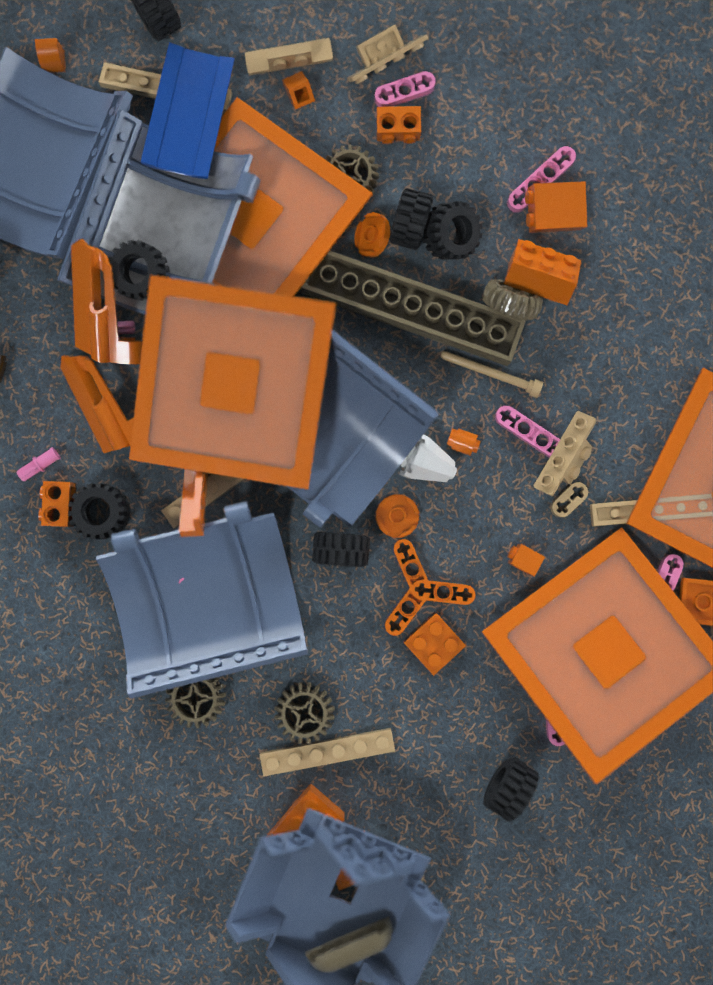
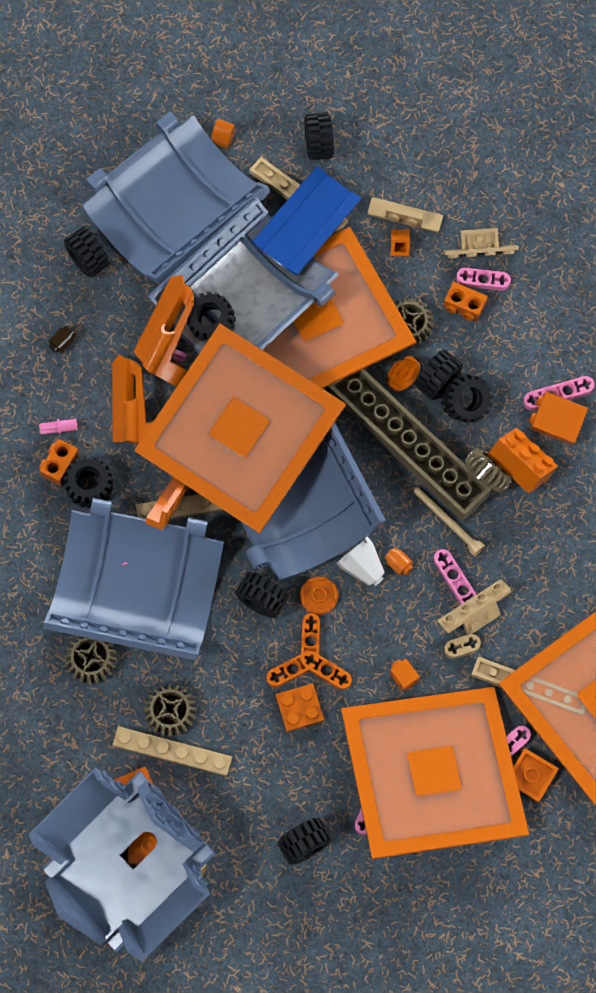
camera: 25 degrees right, 15 degrees down
(351, 947) = (118, 901): dark tan brick -> none

